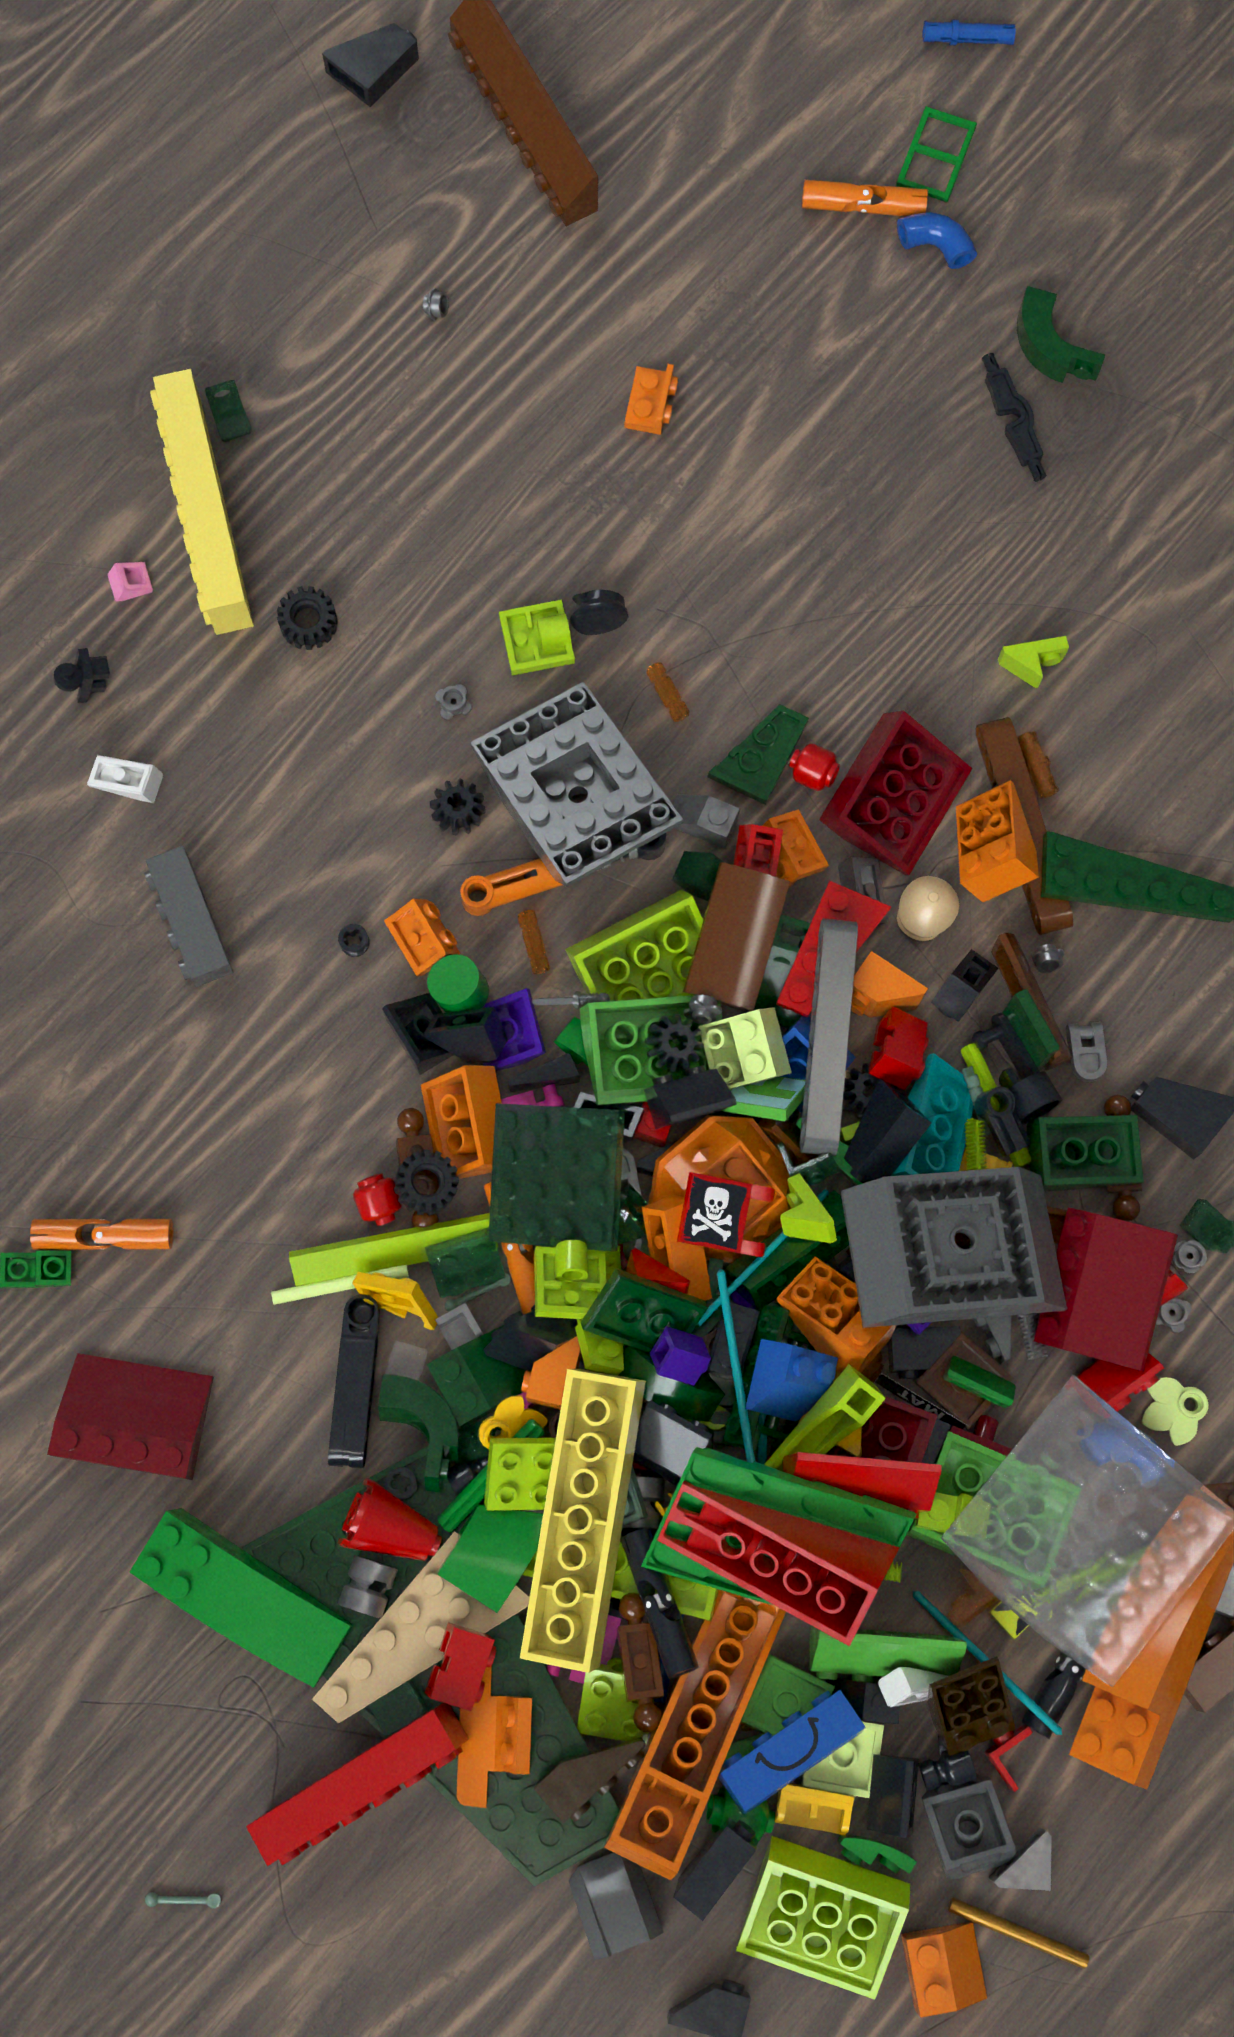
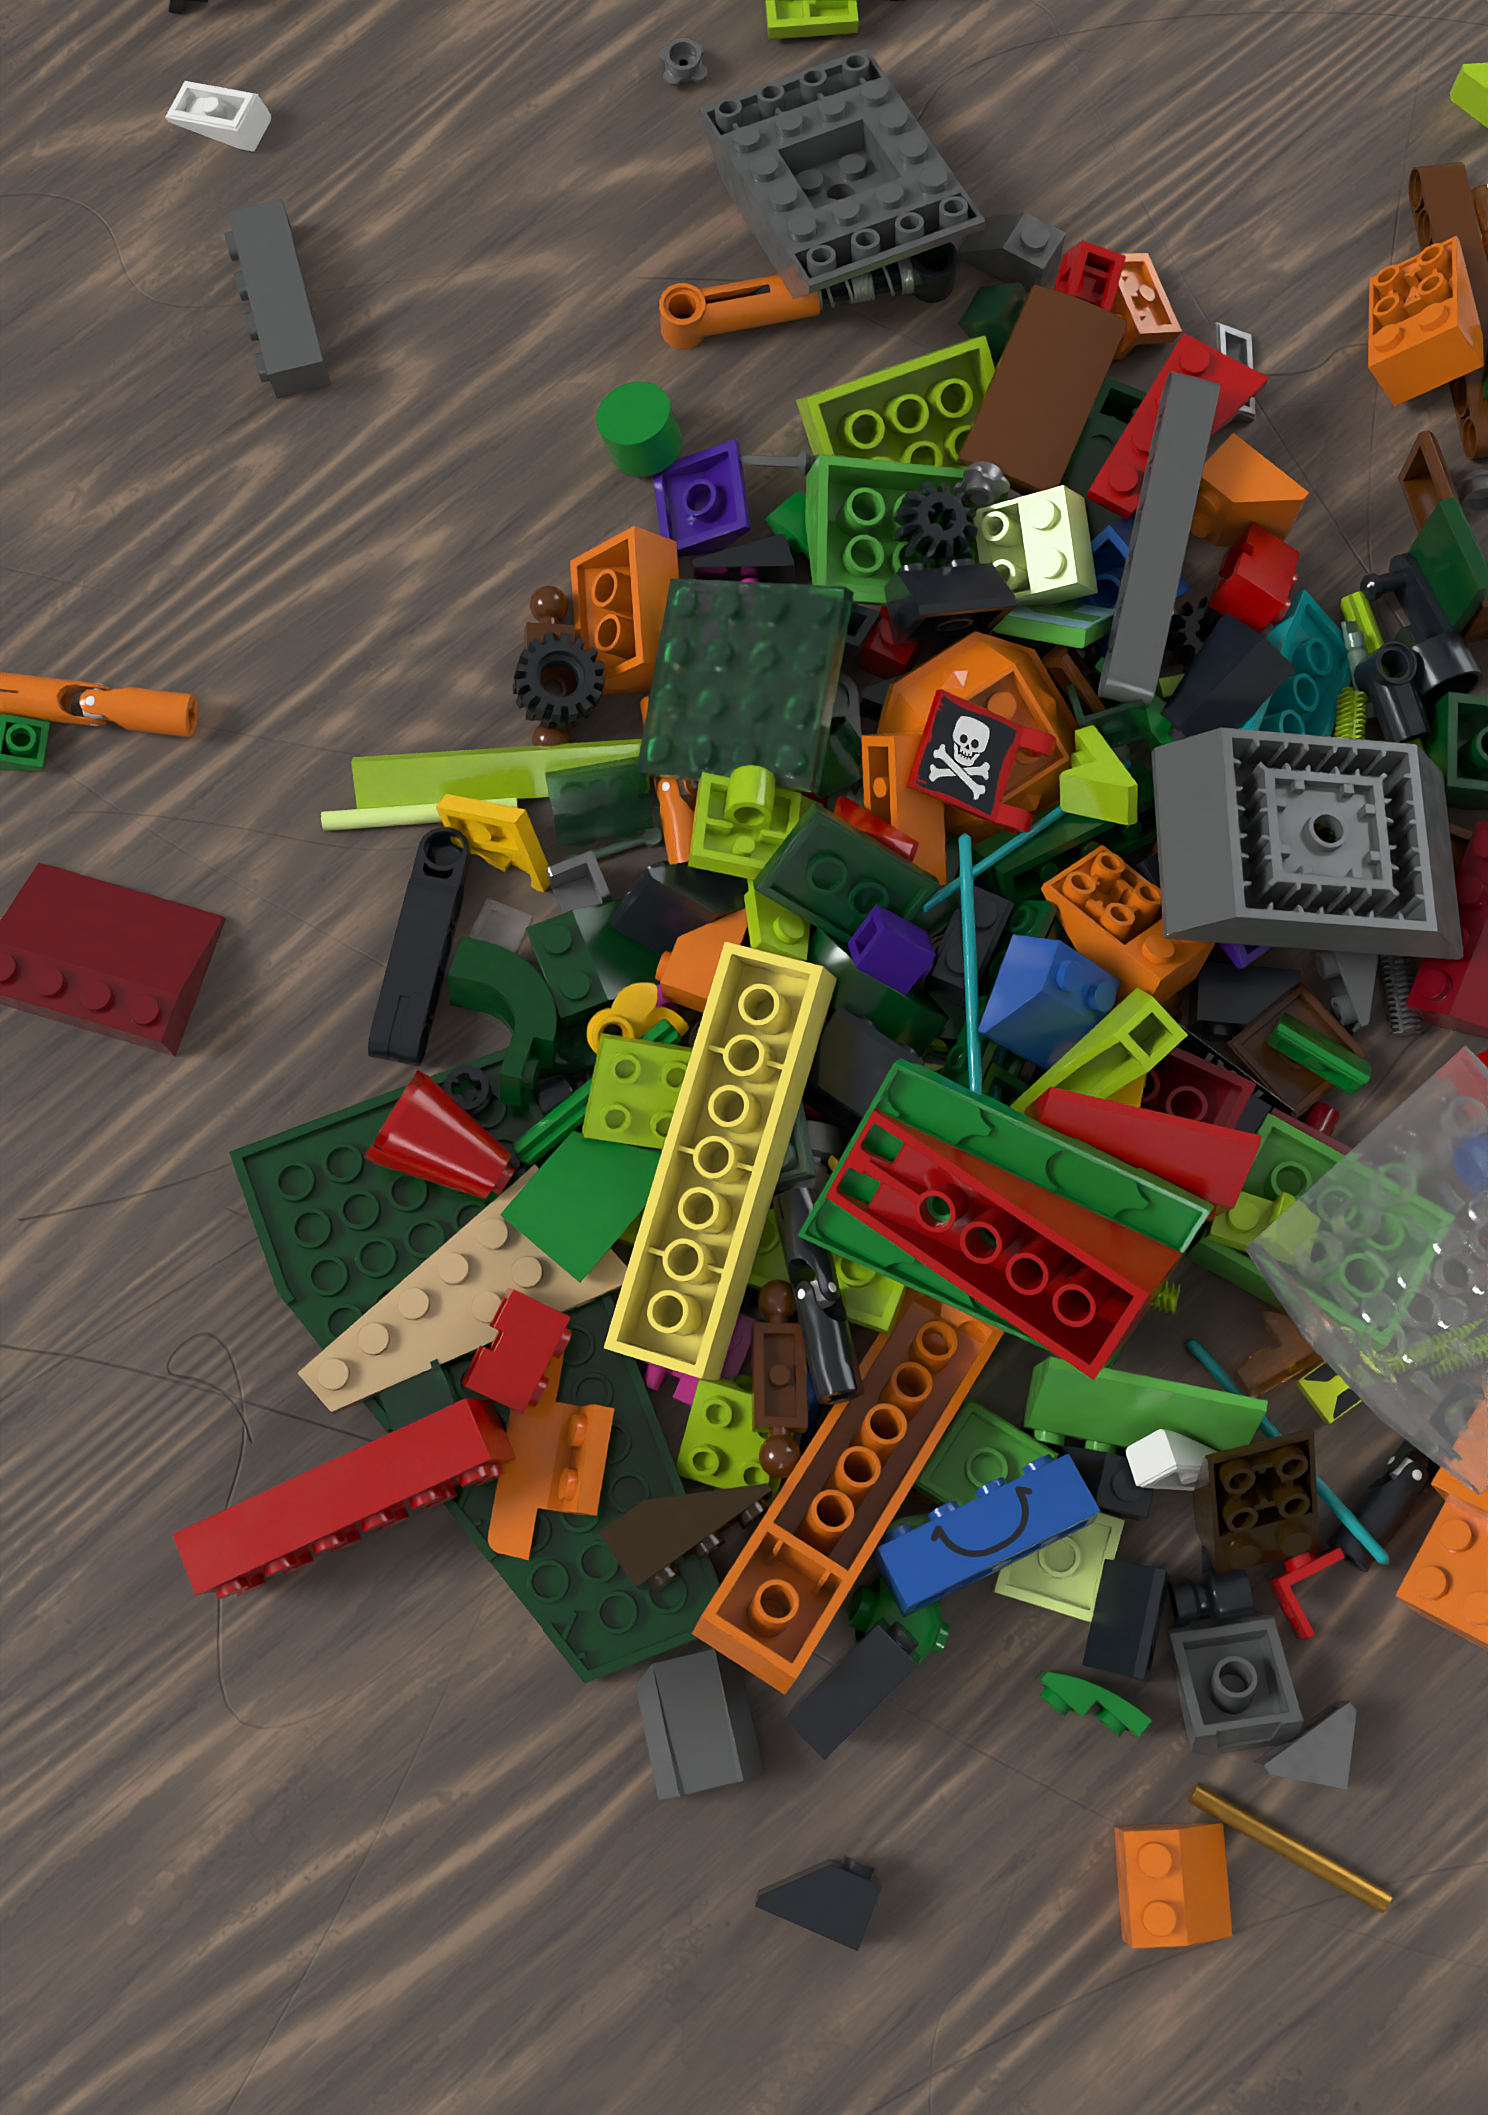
camera: 10 degrees right, 0 degrees up
(213, 1900) = (118, 1643): sand green hinge -> none
(240, 1597) = (215, 1217): green slope -> none
(355, 949) = (503, 371): black bush -> none
(367, 1587) = (387, 1239): flat silver wheel -> none
(377, 1199) = (487, 702): red head -> none
(409, 1021) = (580, 487): black slope -> none
(421, 935) = (595, 356): orange bracket -> none
(446, 802) = (670, 197): black gear -> none
(469, 1034) = (647, 492): black slope -> none
(533, 941) = (753, 388): clear orange axle -> none
(667, 692) = (982, 82): clear orange axle -> none
(761, 758) = (1106, 179): dark green wing -> none
(814, 767) = (1177, 198): red head -> none
(814, 1809) = (1008, 1627): yellow hinge -> none
(824, 1917) = (1005, 1786): lime slope -> none
(896, 792) = (1289, 244): dark red slope -> none
(927, 908) = (1315, 405): tan hat -> none
(964, 985) = (1355, 513): black slope -> none

